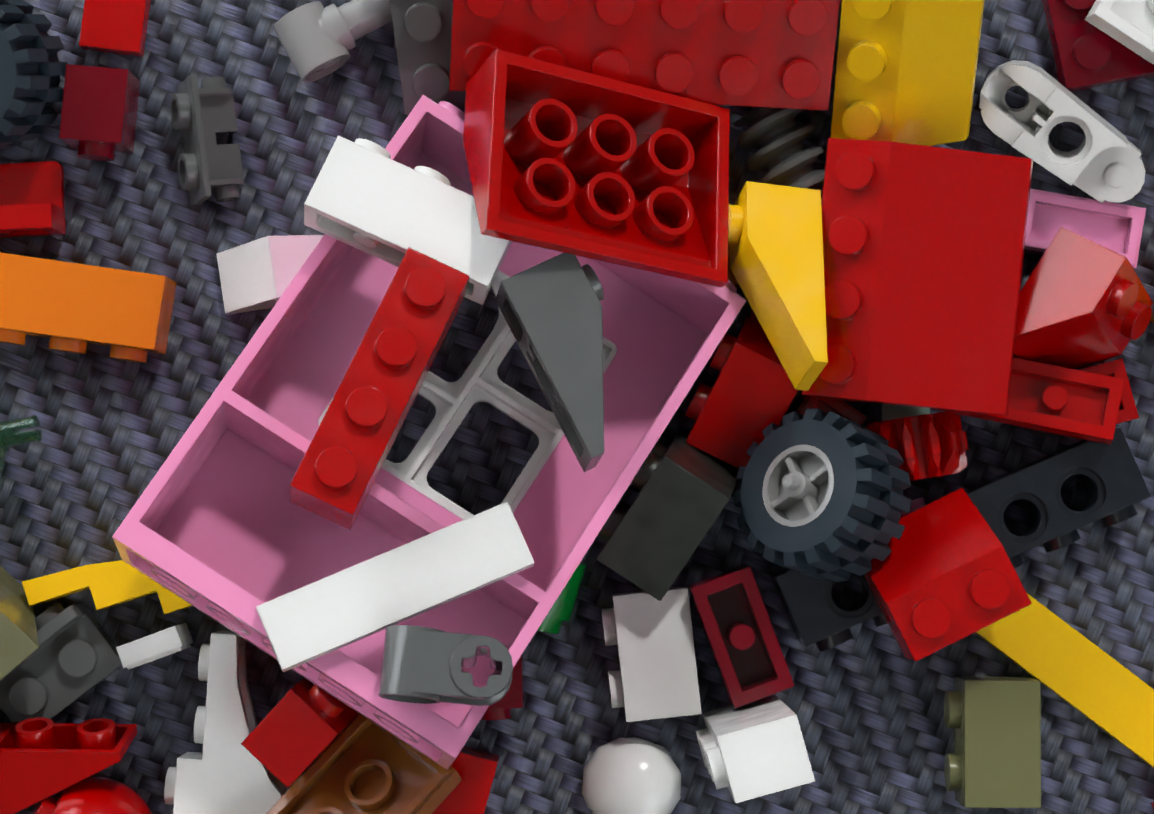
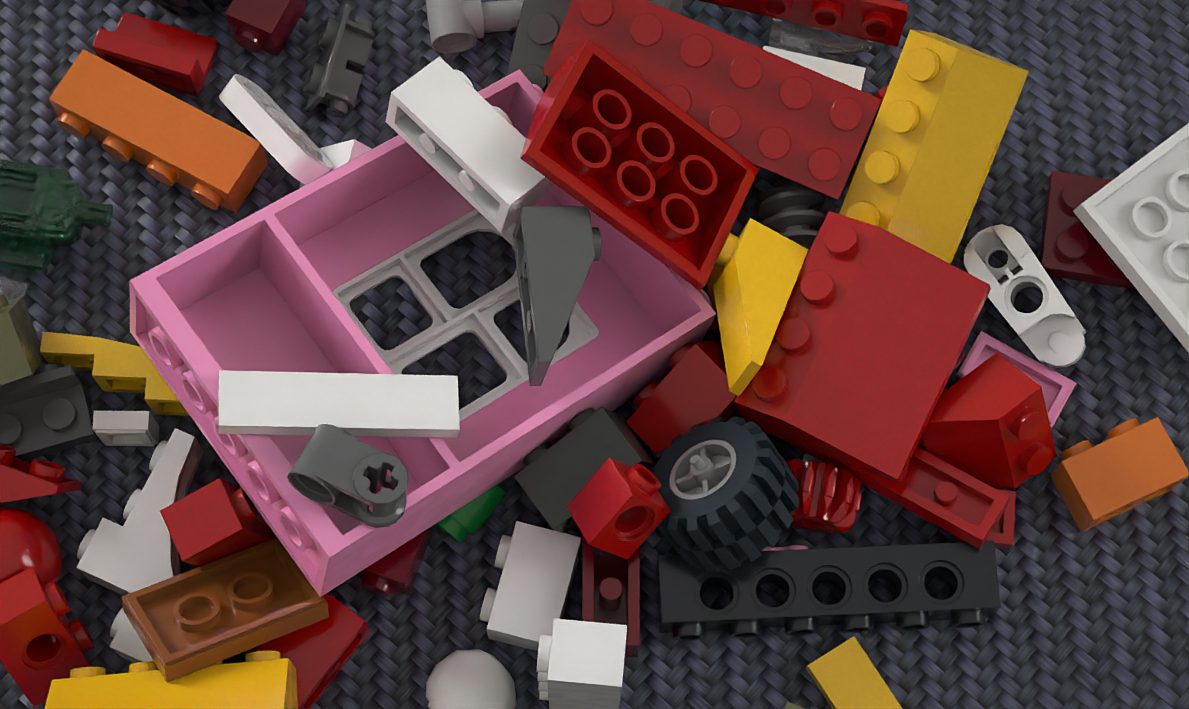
camera: 15 degrees right, 15 degrees down
(174, 253) = (275, 130): none -> white beam
(378, 389) = (389, 251): red brick -> none
(724, 560) = (619, 507): none -> red brick
(944, 577) = (798, 601): red slope -> none

